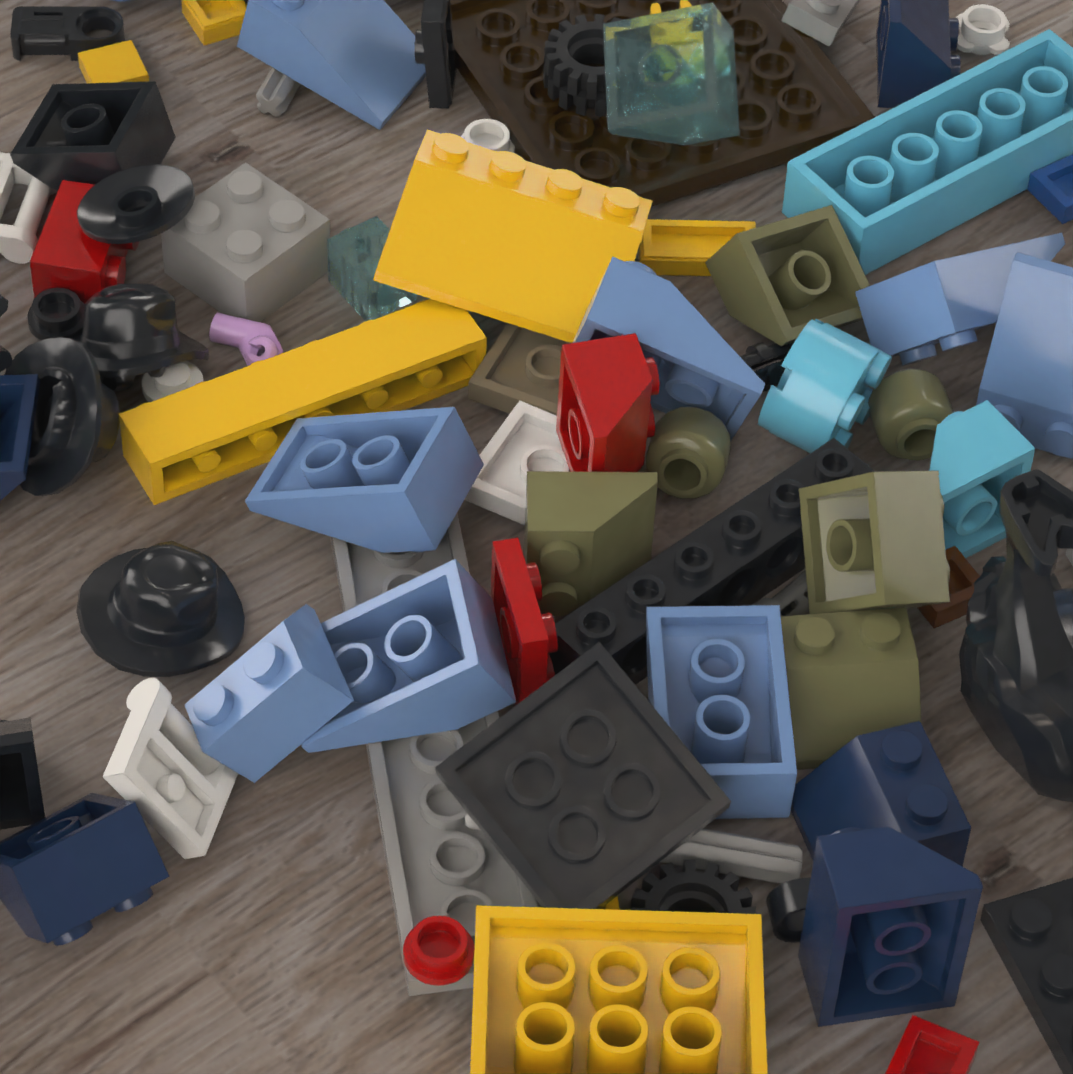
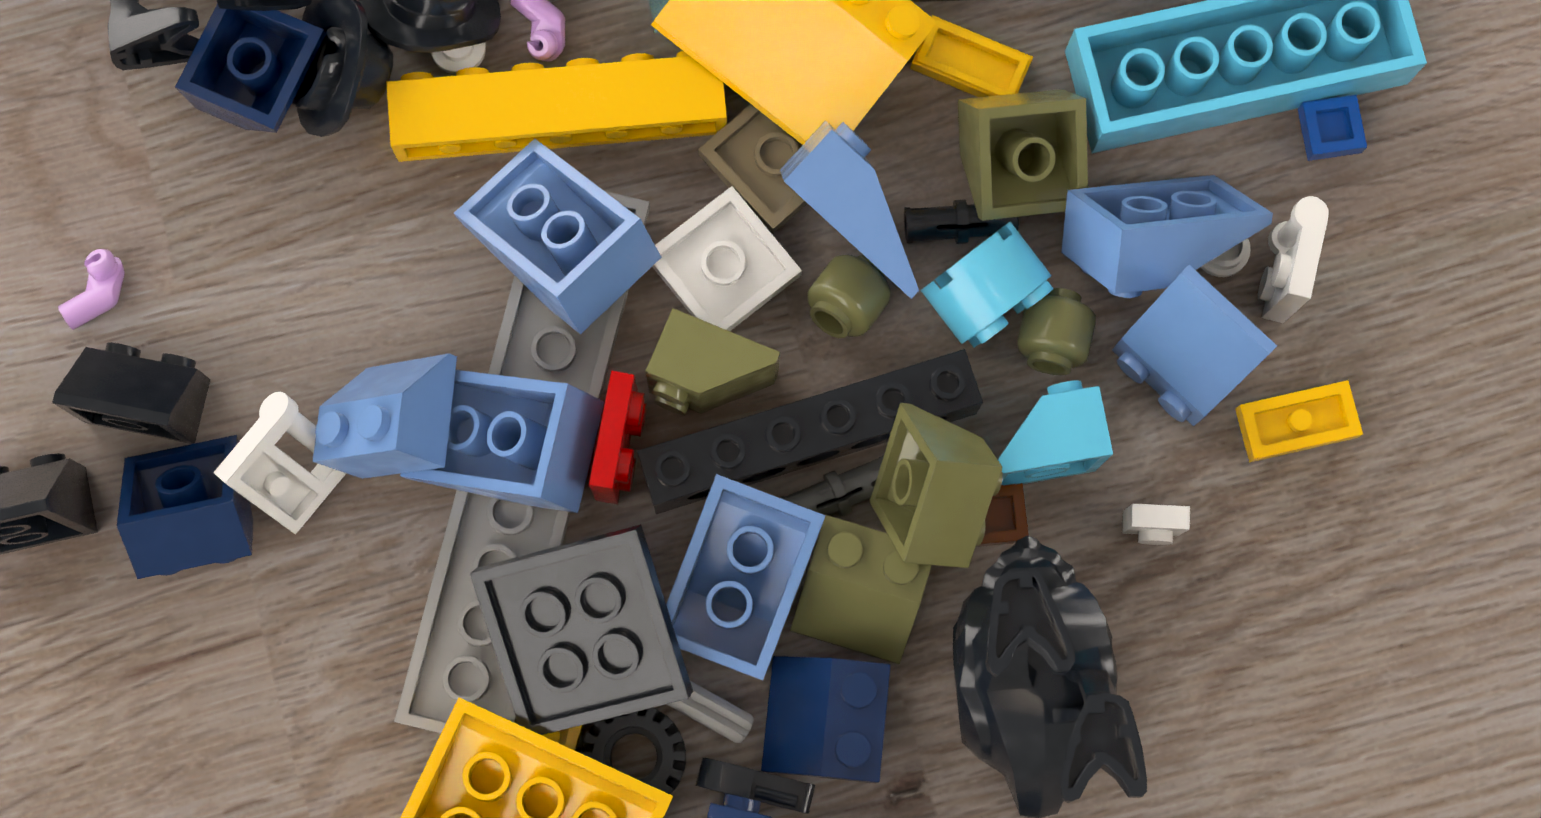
camera: 20 degrees right, 30 degrees up
(160, 611) = (352, 287): black hat -> none
(438, 951) = (420, 714): red plate -> none
(606, 404) = (775, 263): red slope -> none

